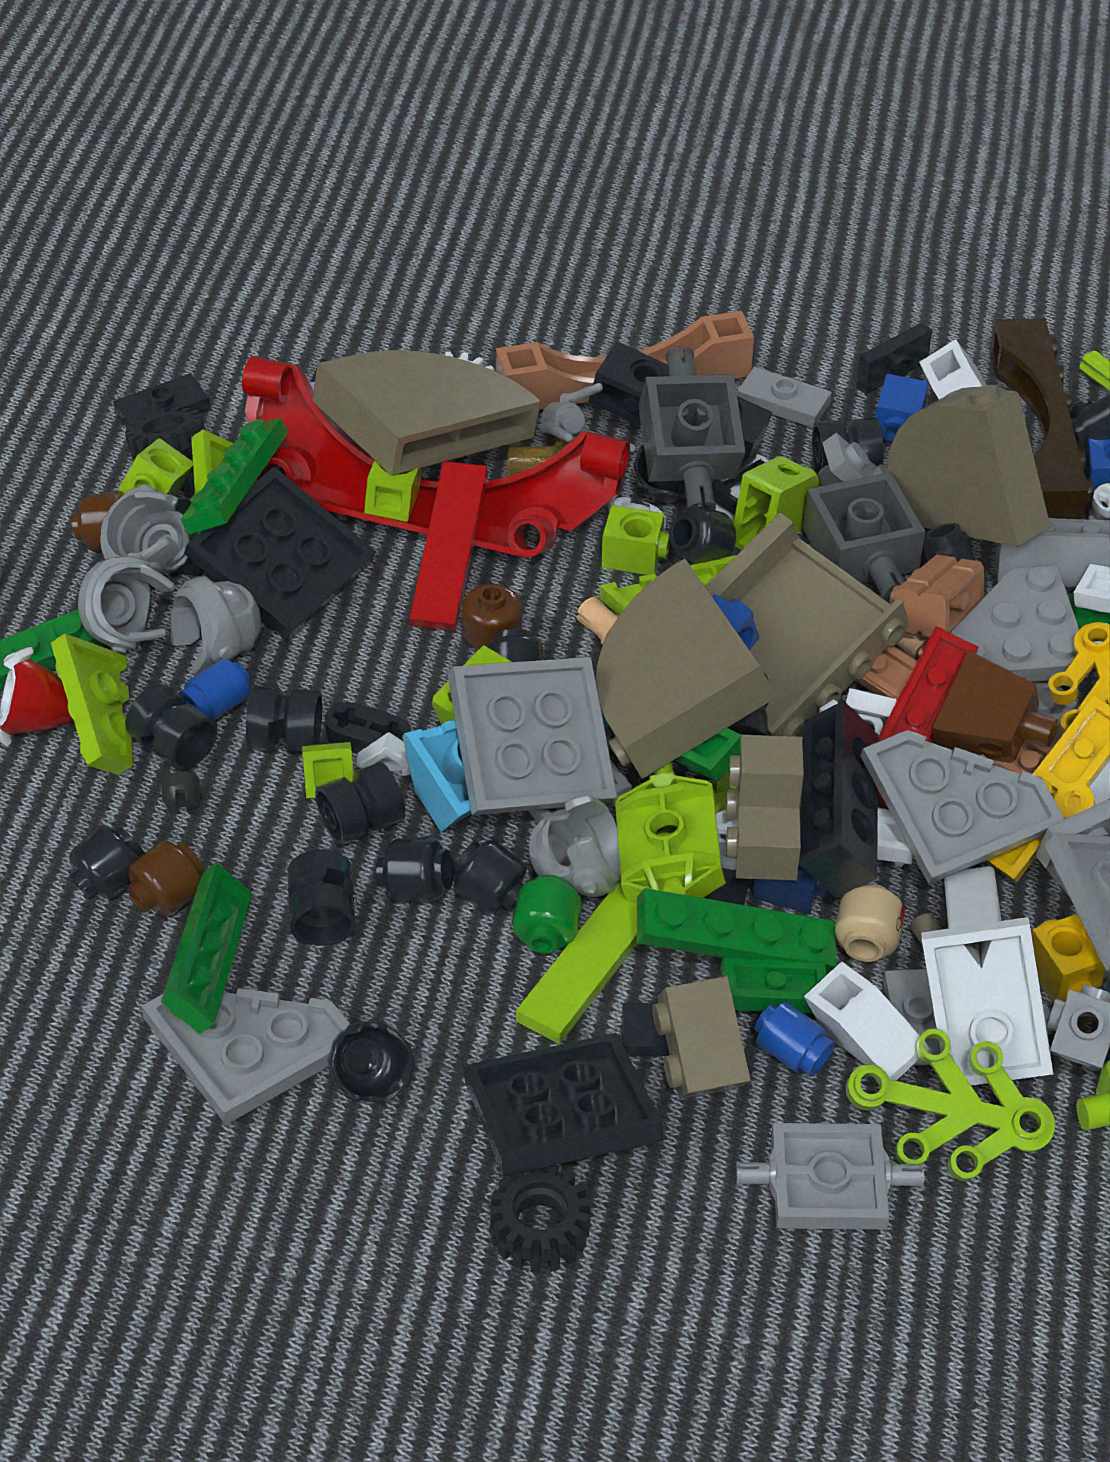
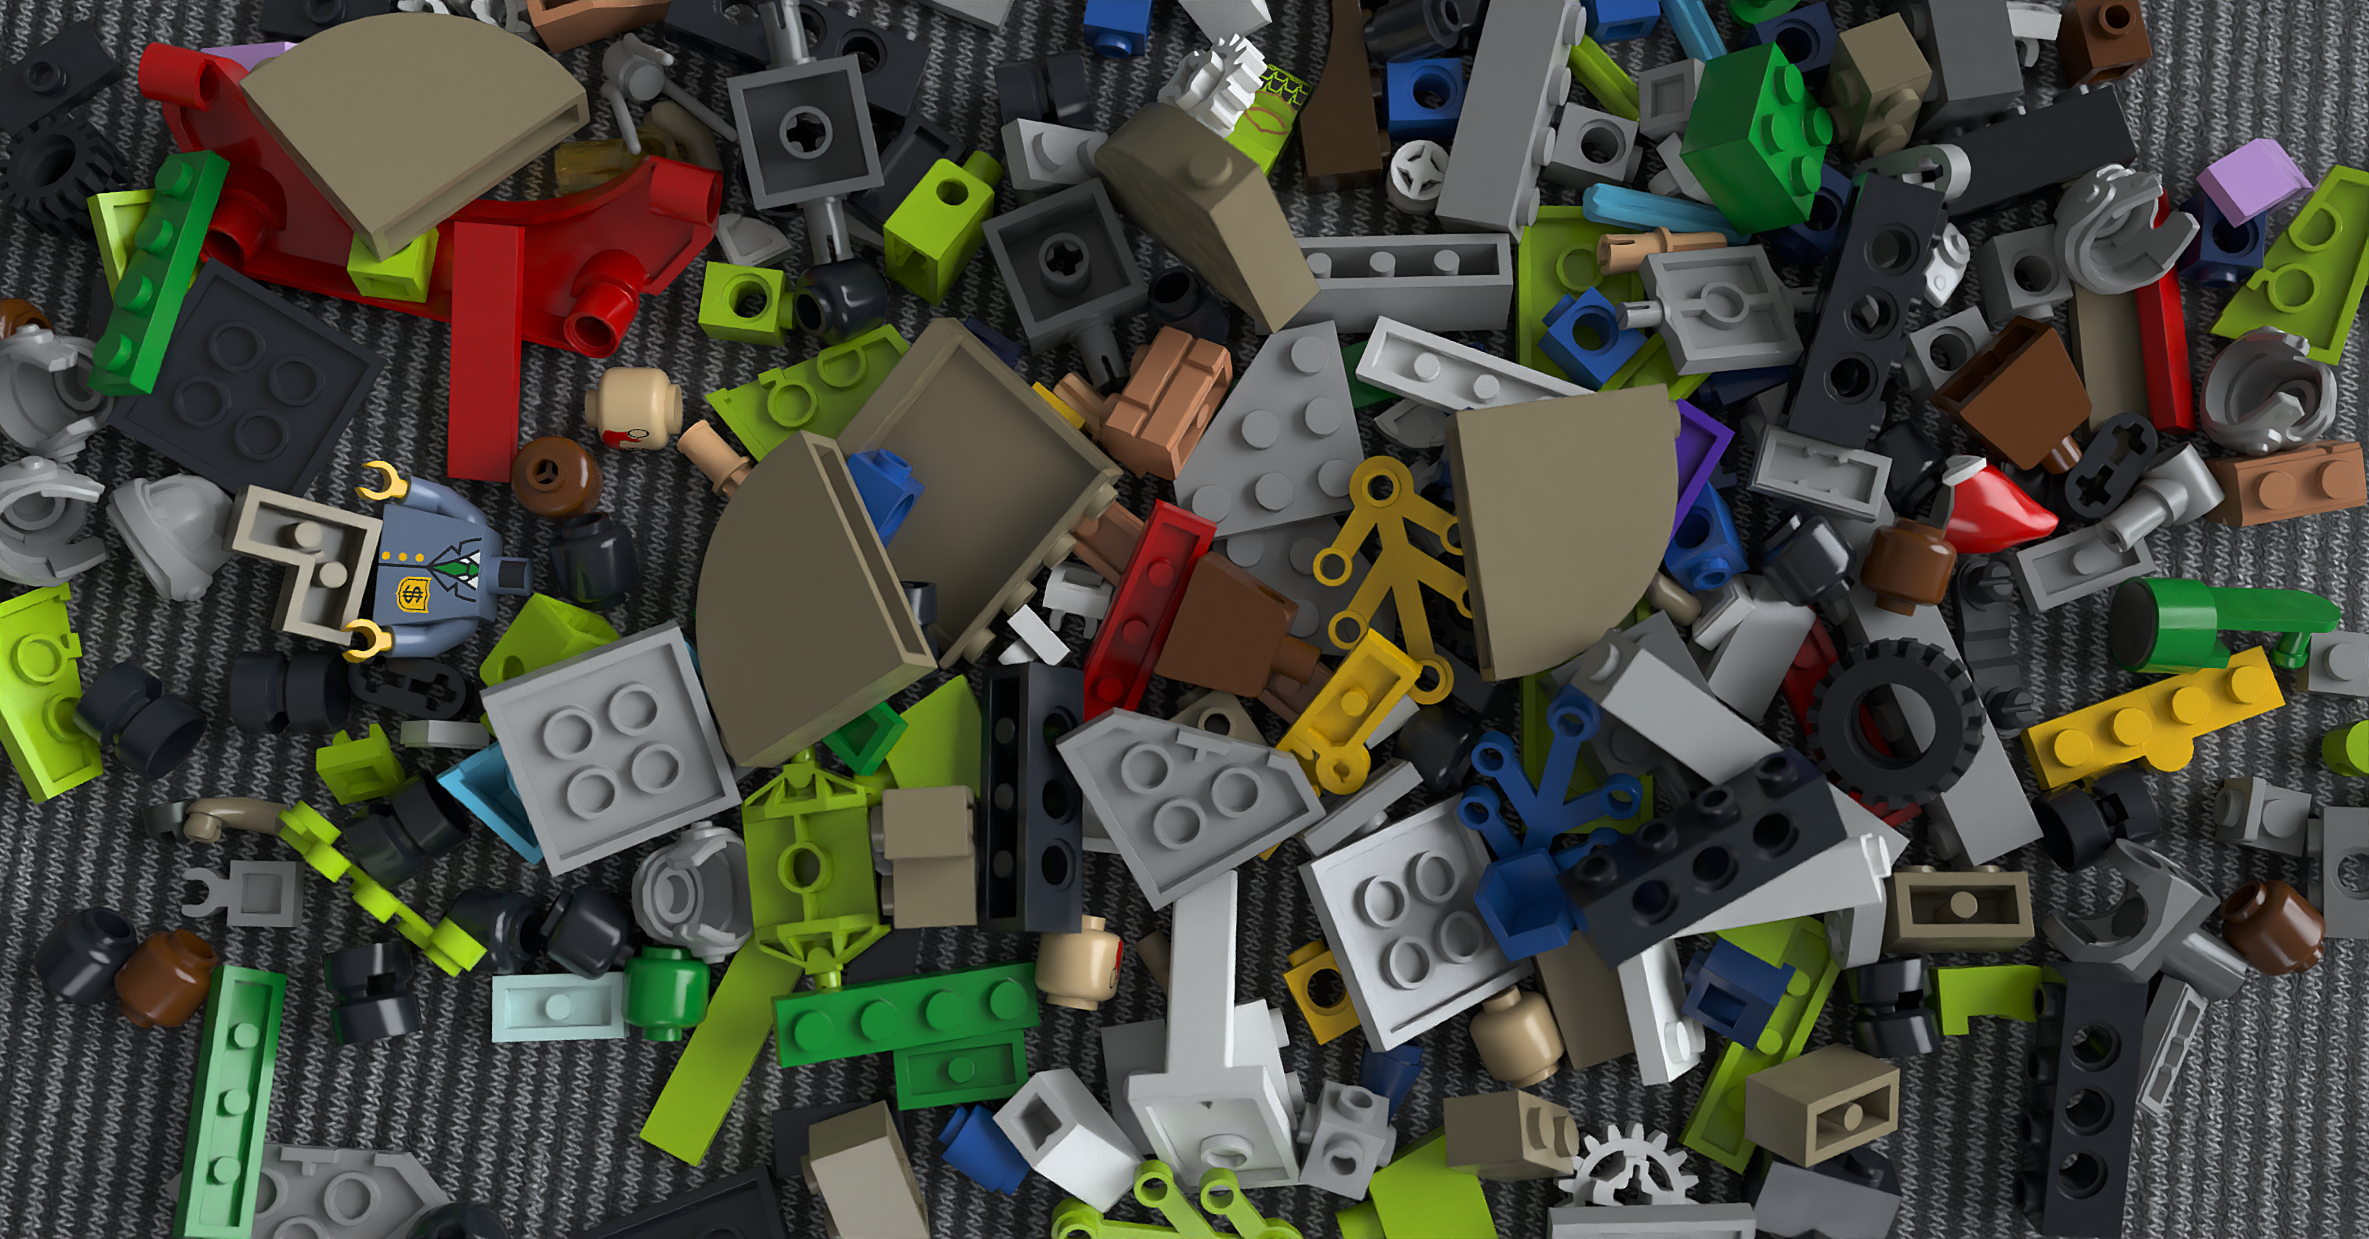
camera: 10 degrees left, 35 degrees up
(158, 467) = (57, 244): lime brick -> none
(218, 688) = (193, 645): blue brick -> none
(219, 791) = (242, 813): none -> dark tan arm
(237, 840) = (255, 893): none -> light grey plate
(296, 786) = (313, 838): none -> lime plant
(314, 629) = (324, 554): none -> dark tan brick
(398, 657) = (434, 570): none -> sand blue torso
(461, 925) = (557, 1007): none -> light aqua plate
(550, 587) = (635, 408): none -> tan head

